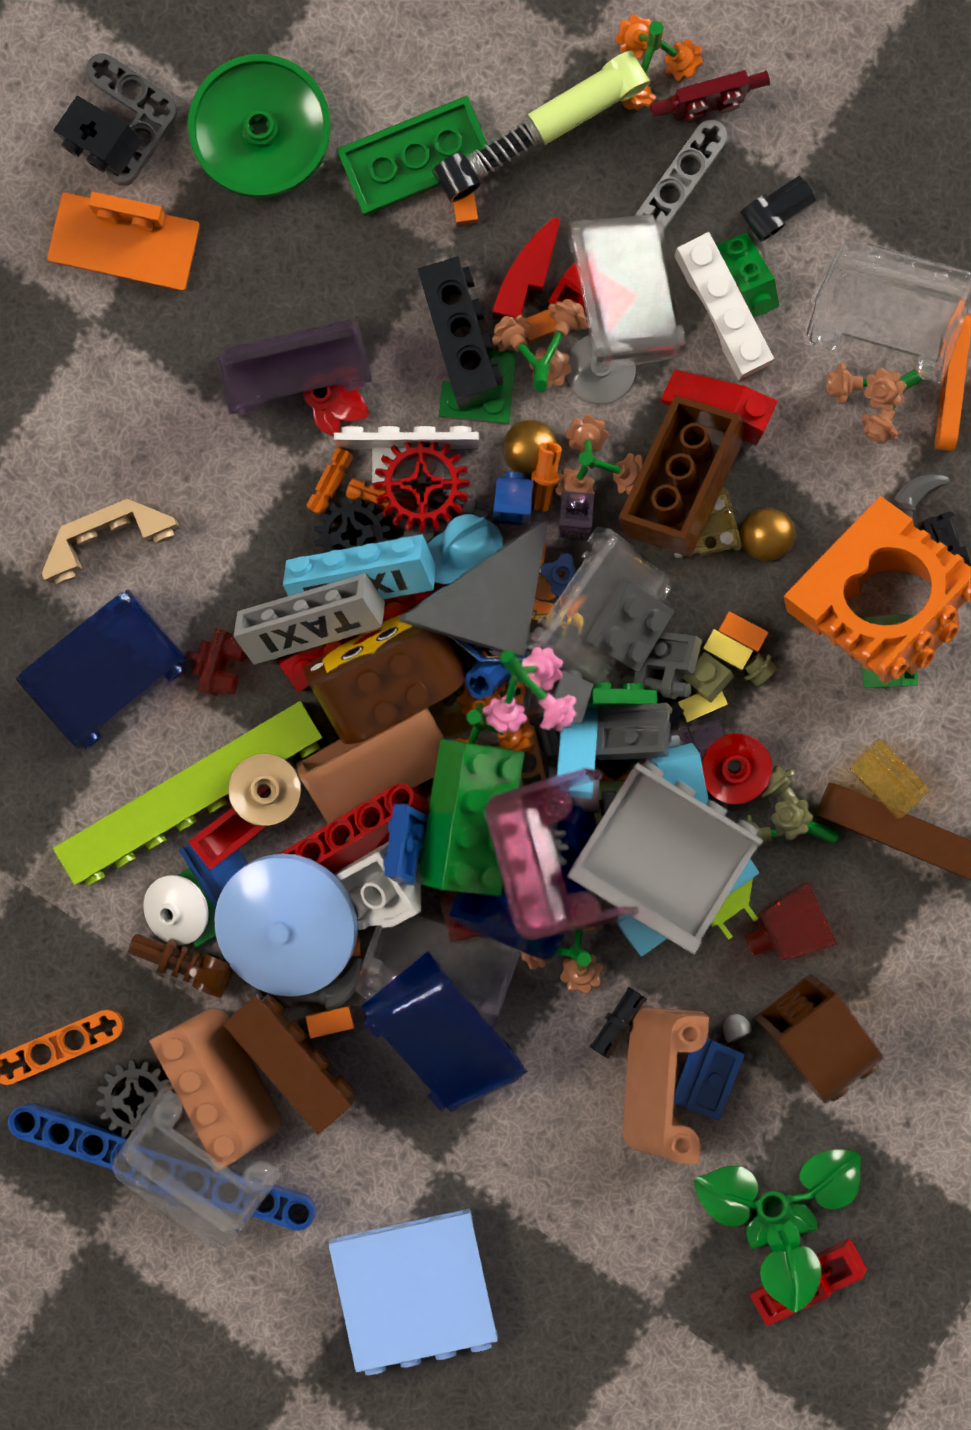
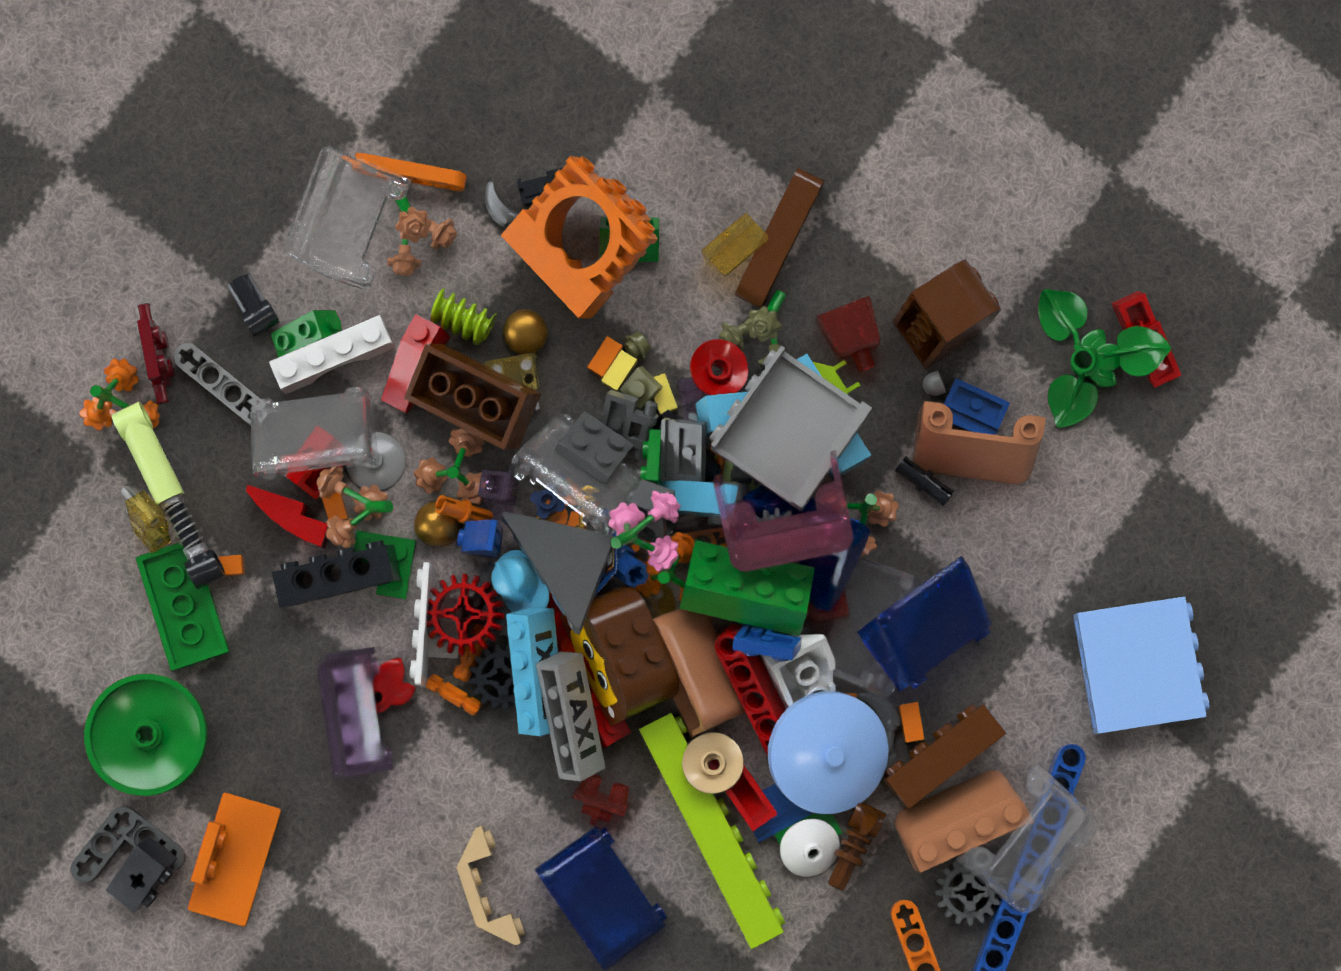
camera: 85 degrees left, 5 degrees down
(511, 104) = (146, 519): none -> clear yellow piece
(778, 457) = (461, 318): none -> lime piece

